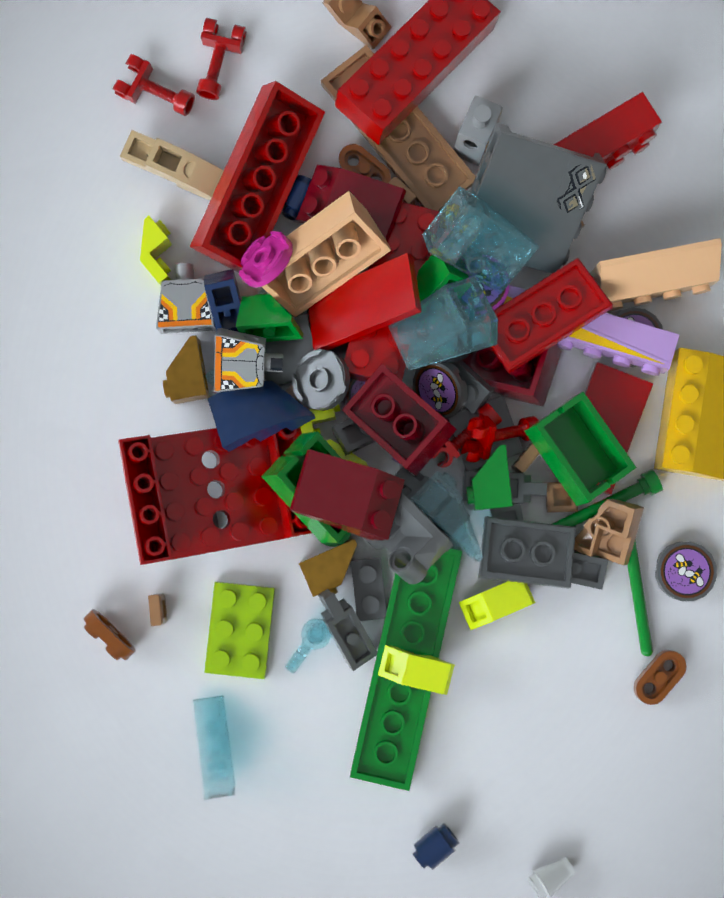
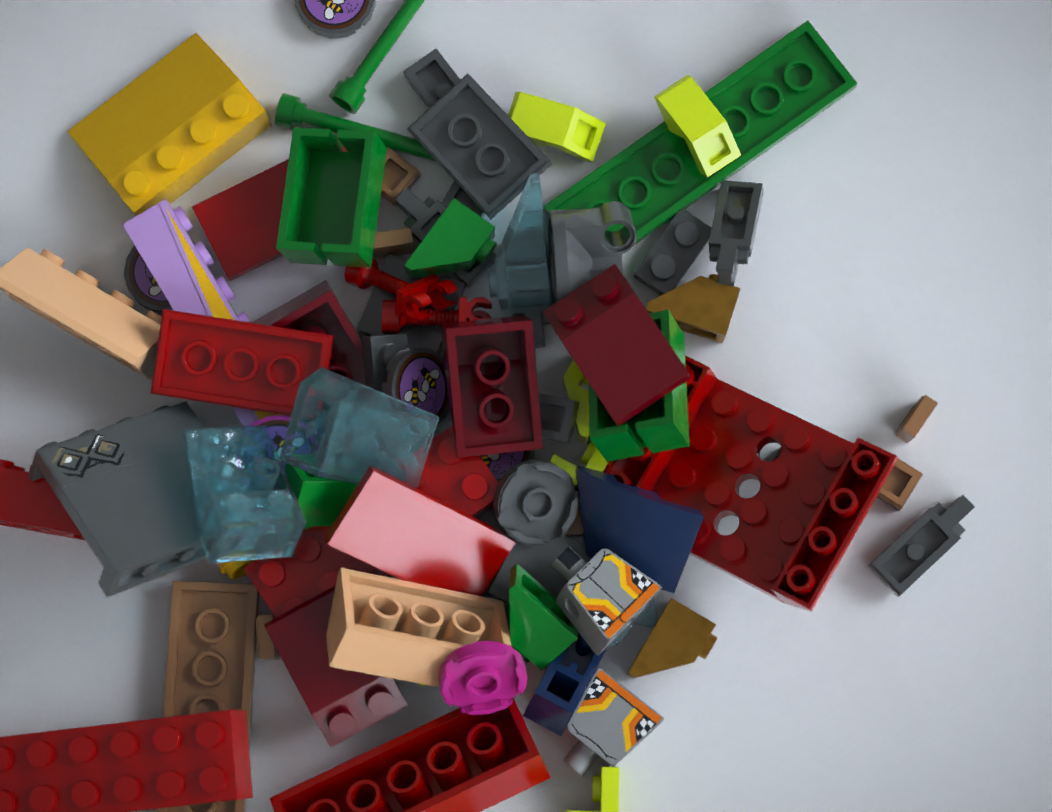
camera: 140 degrees left, 5 degrees down
(98, 542) = (921, 545): none -> dark grey hinge
(117, 644) = (989, 421): dark orange plate -> none
(141, 572) = (899, 484): none -> medium nougat tile
(214, 747) = (973, 229): clear light blue slope -> none
(239, 630) = (845, 326): lime plate -> none
(295, 198) = (383, 731): dark blue brick -> none
(314, 636) = (773, 252): clear light blue plate -> none
(367, 165) = (280, 702): dark orange plate -> none
(478, 129) = (124, 633): light grey torso -> none
(611, 531) = (375, 95): medium nougat slope -> none

